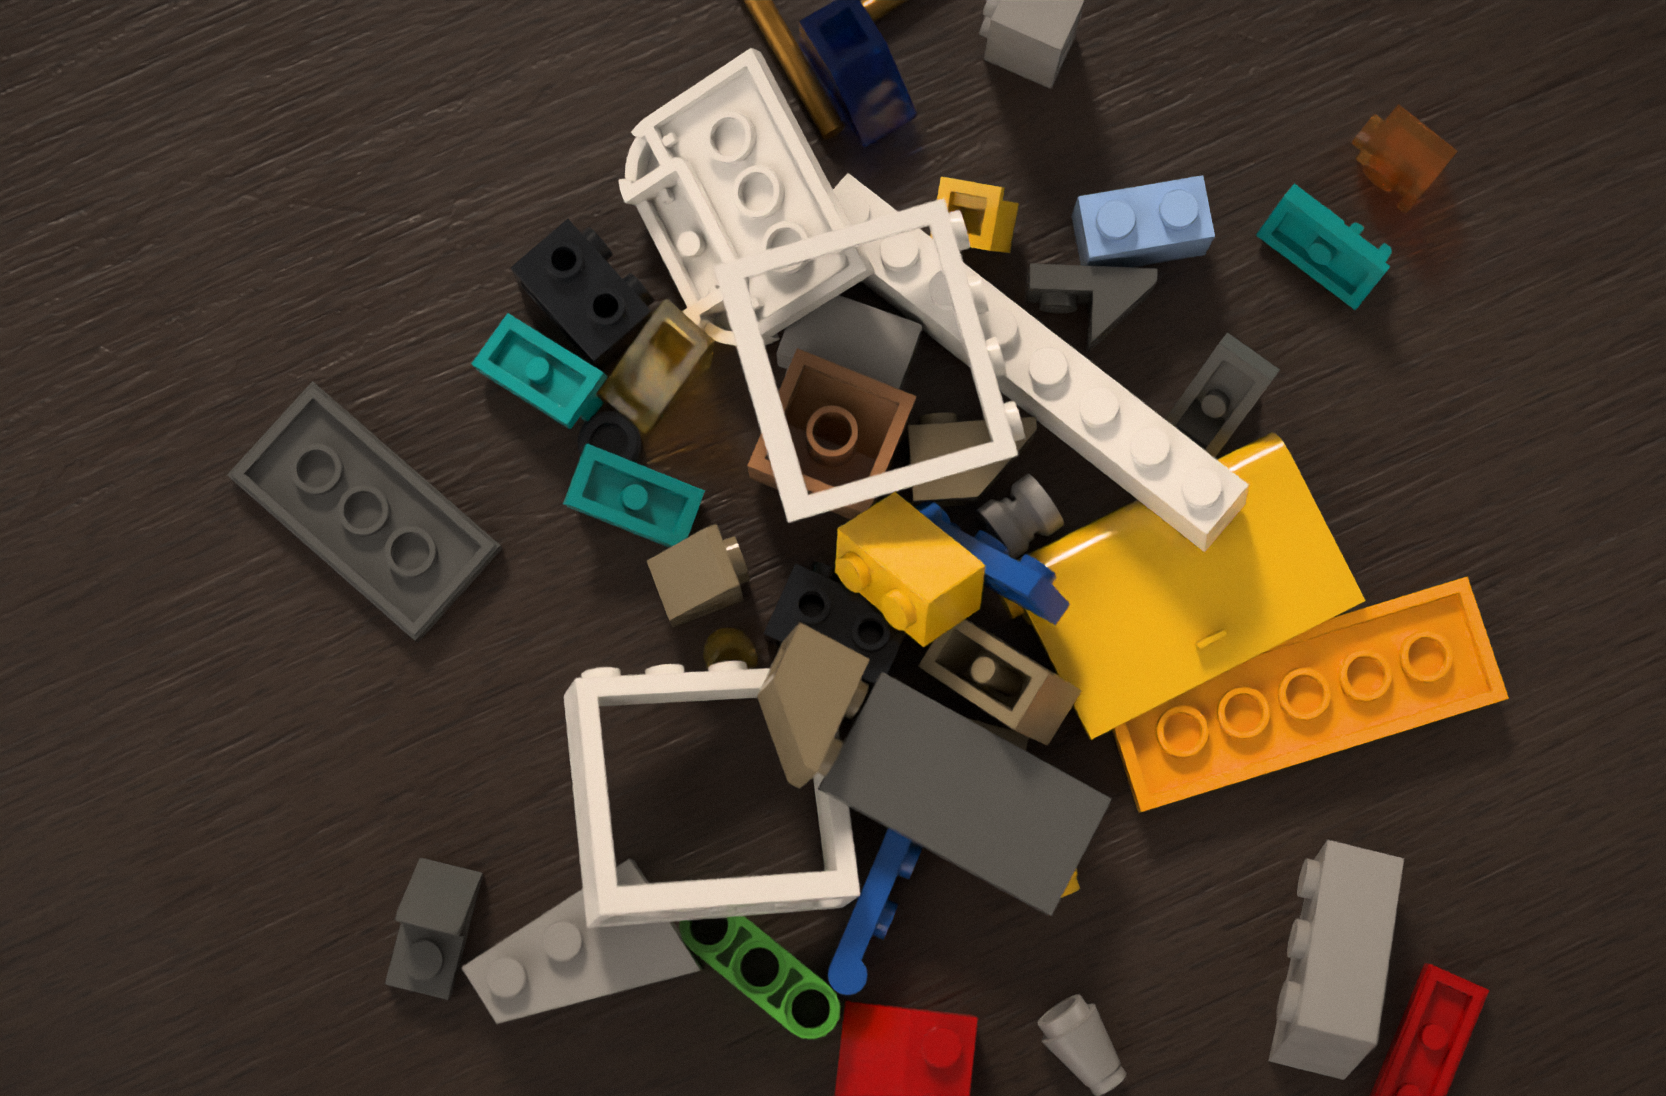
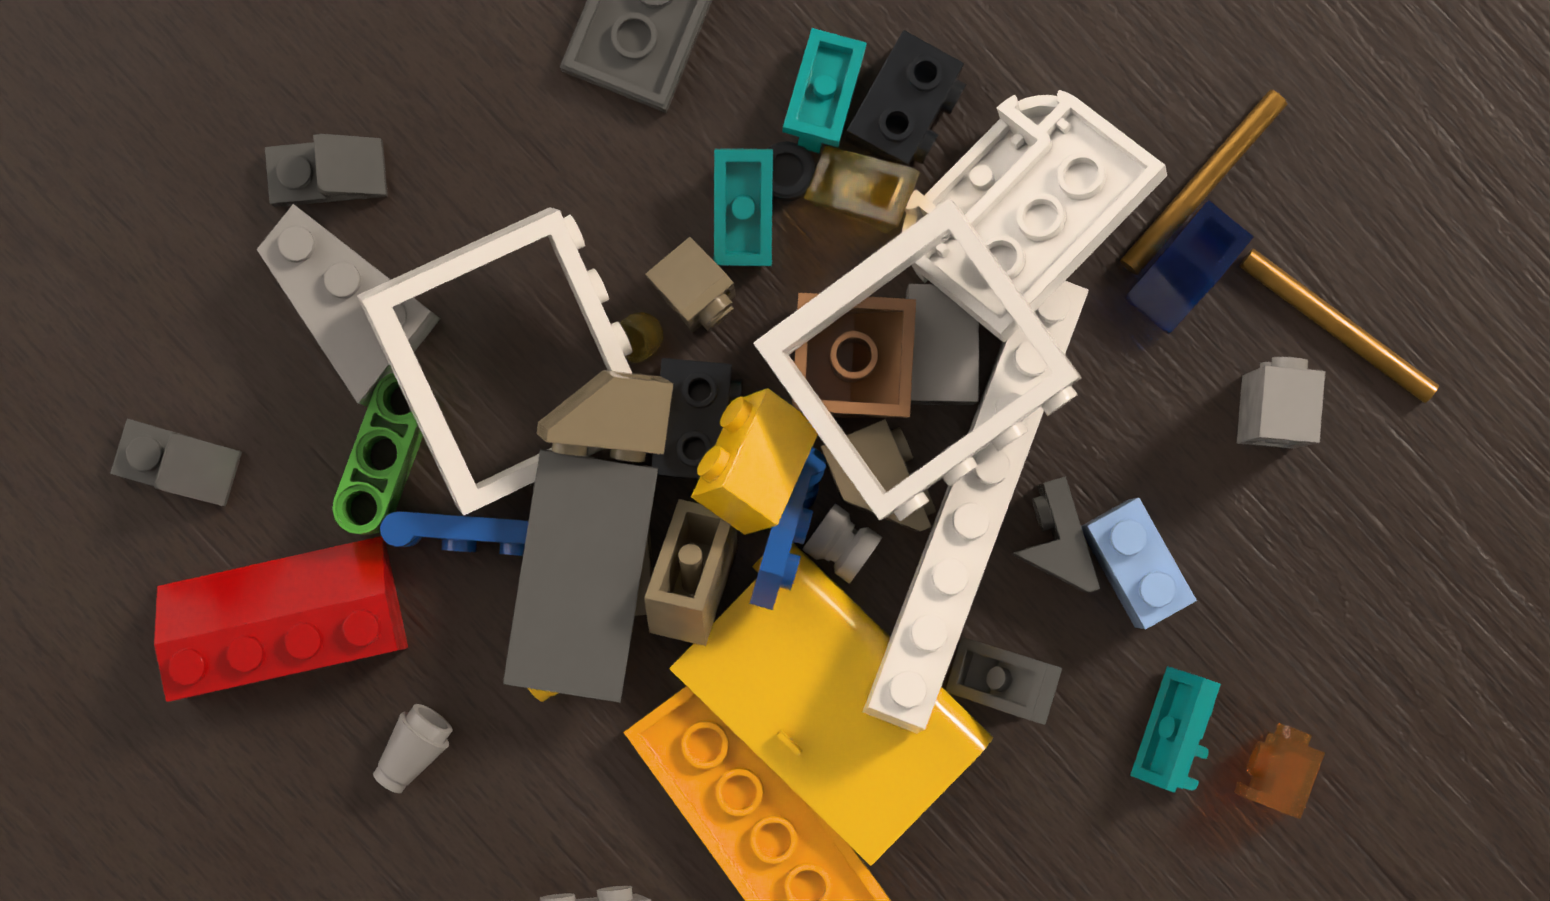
camera: 75 degrees right, 5 degrees up
(984, 213) = (1093, 416): yellow brick -> none

